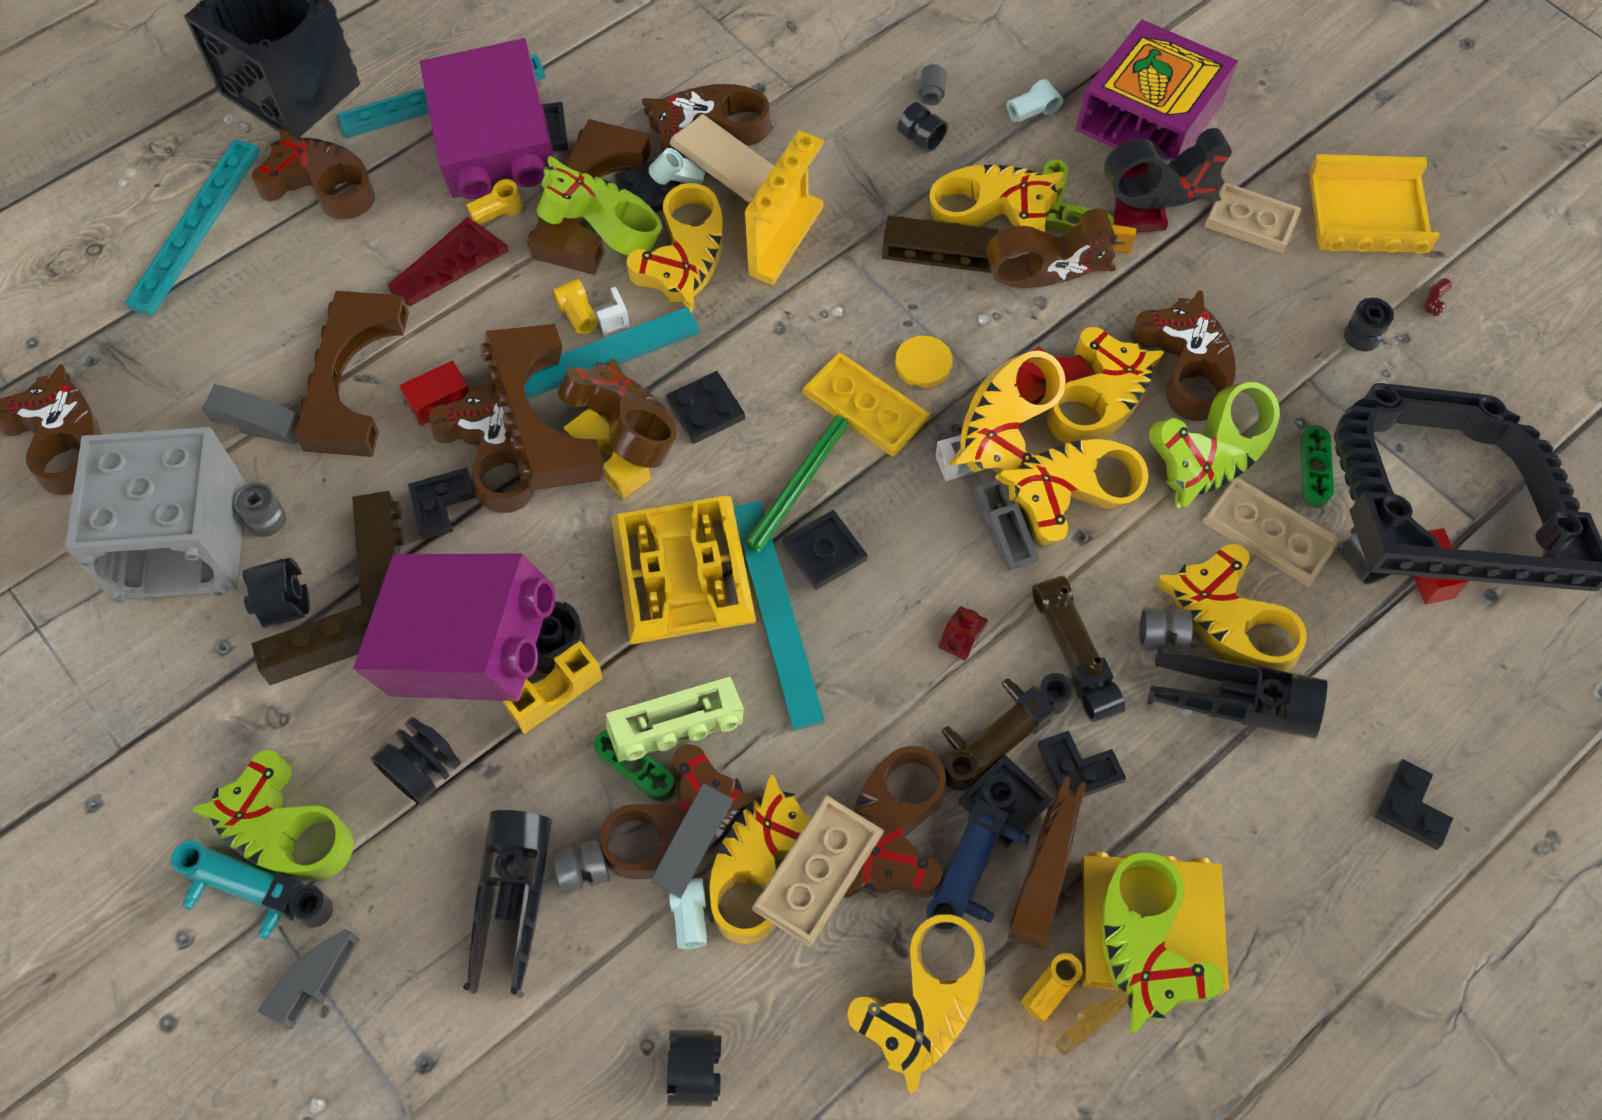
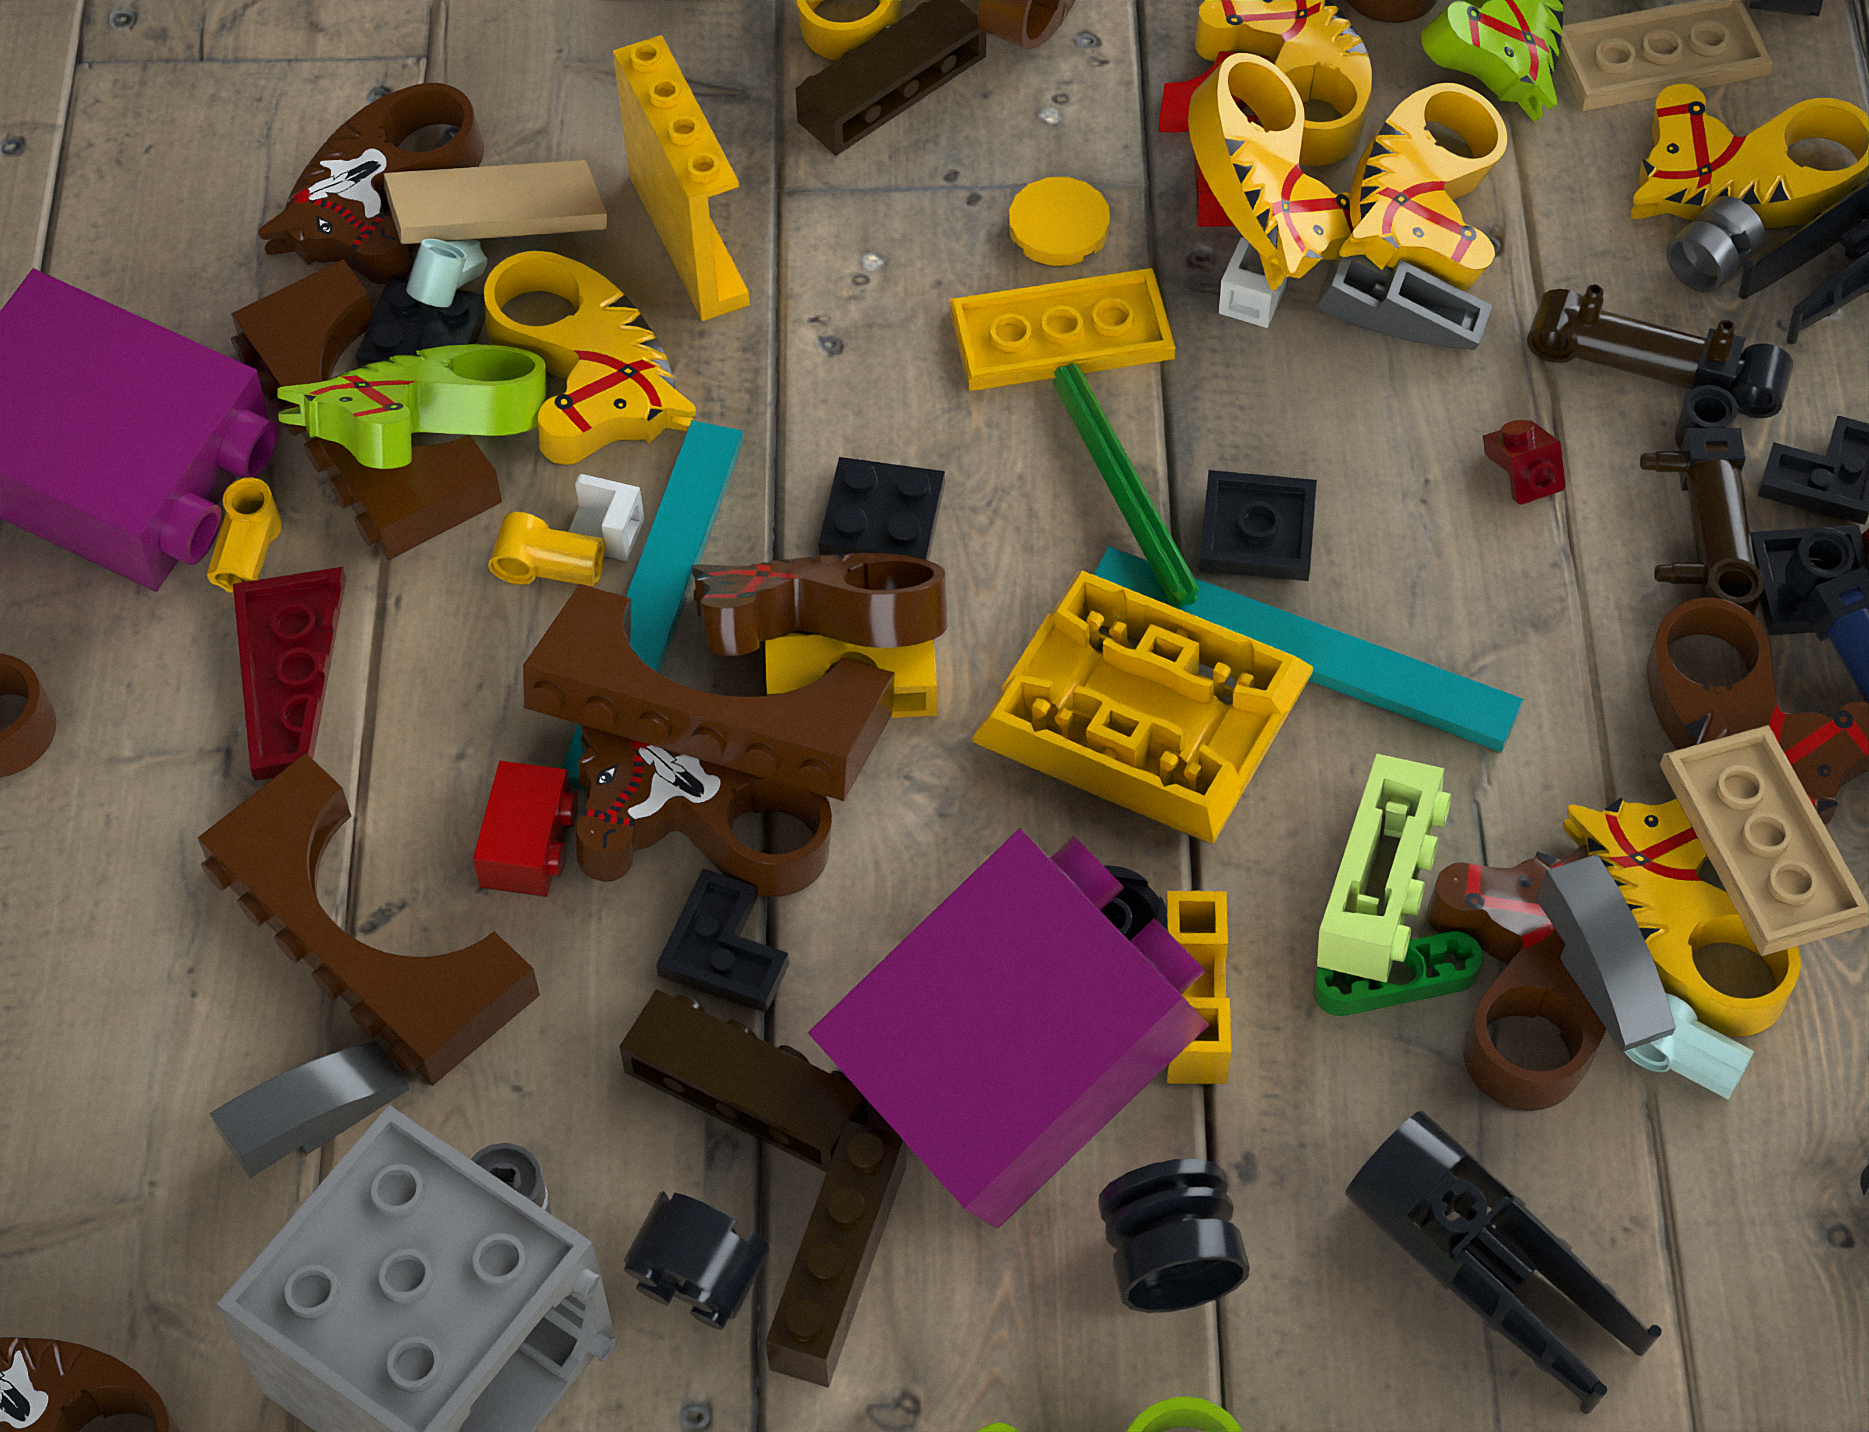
camera: 50 degrees left, 5 degrees down
(580, 866) = (1516, 1130): flat silver wheel -> none

